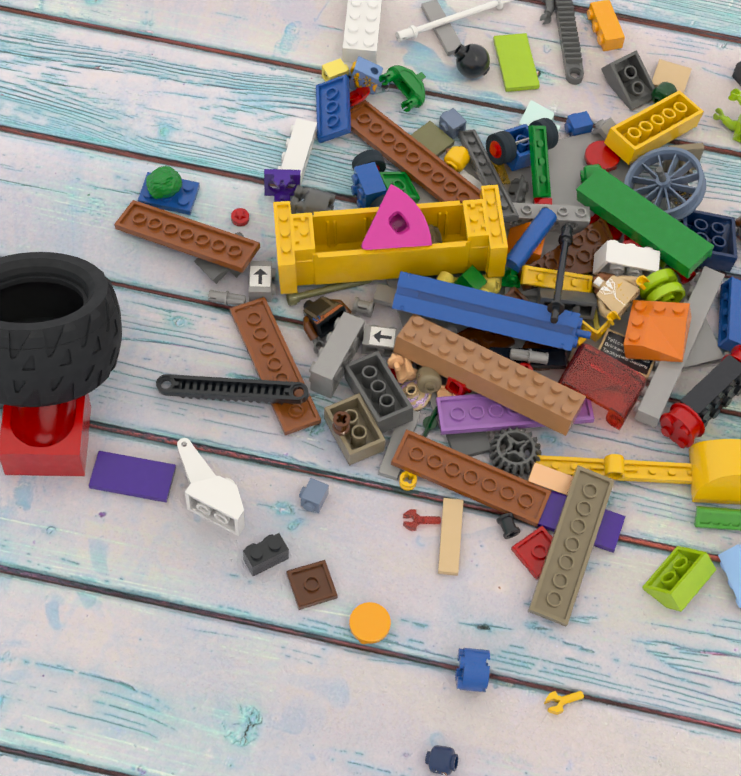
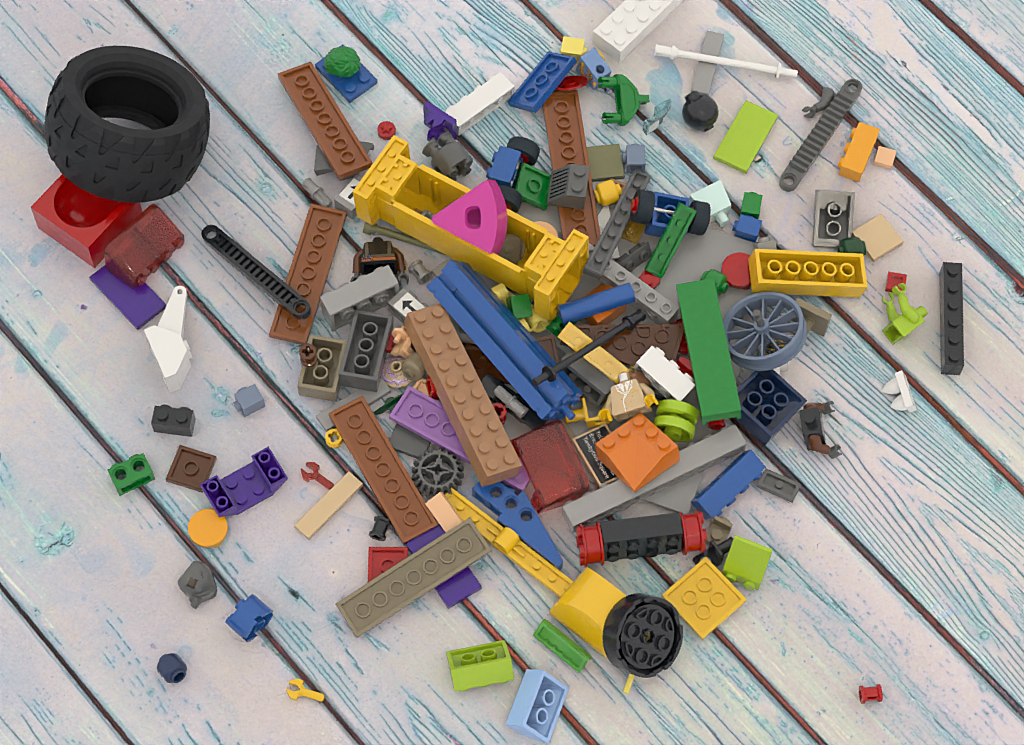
camera: 40 degrees right, 5 degrees up
(120, 429) = (143, 246): none -> clear red windscreen
(270, 624) = (133, 478): none -> green brick
(372, 563) = (246, 485): none -> dark purple slope
(401, 672) = (198, 583): none -> dark grey piece
(429, 168) = (569, 186): none -> dark grey slope
(441, 83) = (660, 113): none -> clear light blue slope
(565, 106) = (751, 204): none -> green brick
(625, 444) = (530, 532): none -> blue brick
(626, 19) = (884, 157): none -> light nougat tile
(713, 100) = (894, 279): none -> red plate

